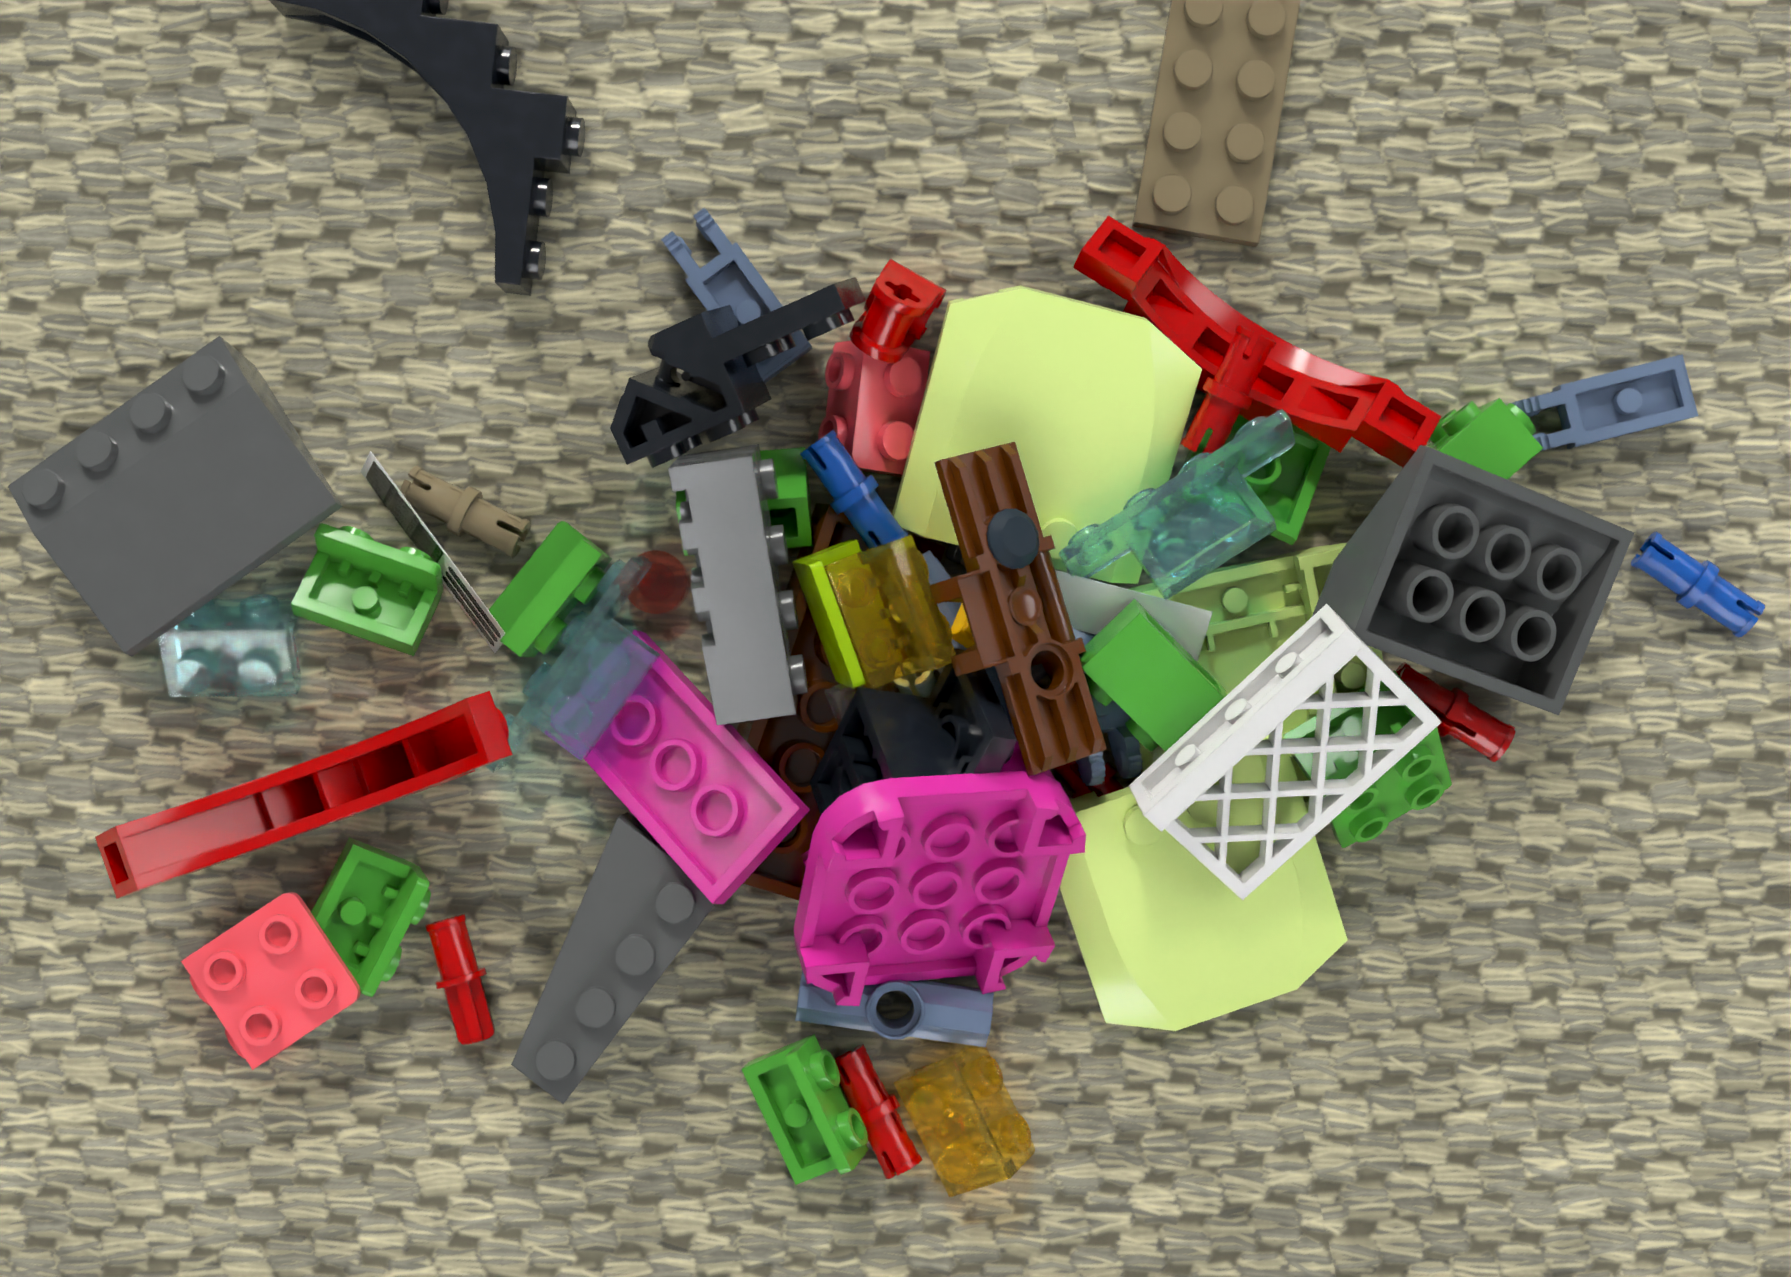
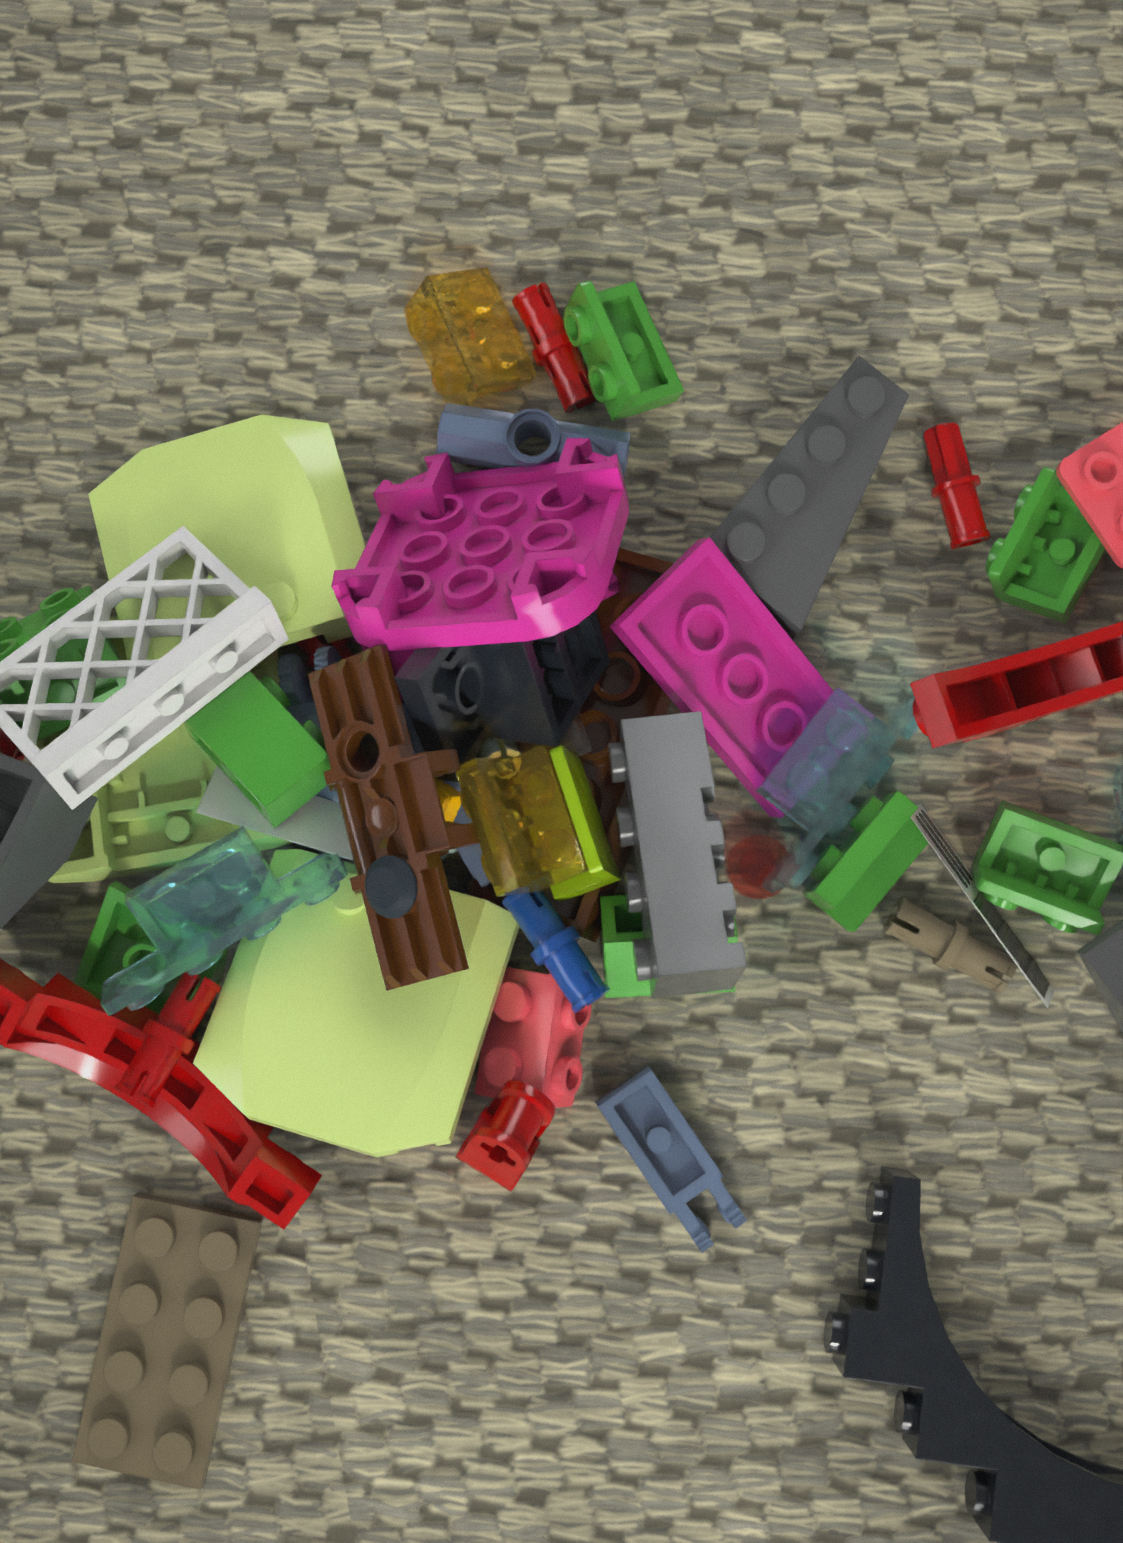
camera: 175 degrees right, 5 degrees down
(720, 378) = (697, 1071): black piece -> none

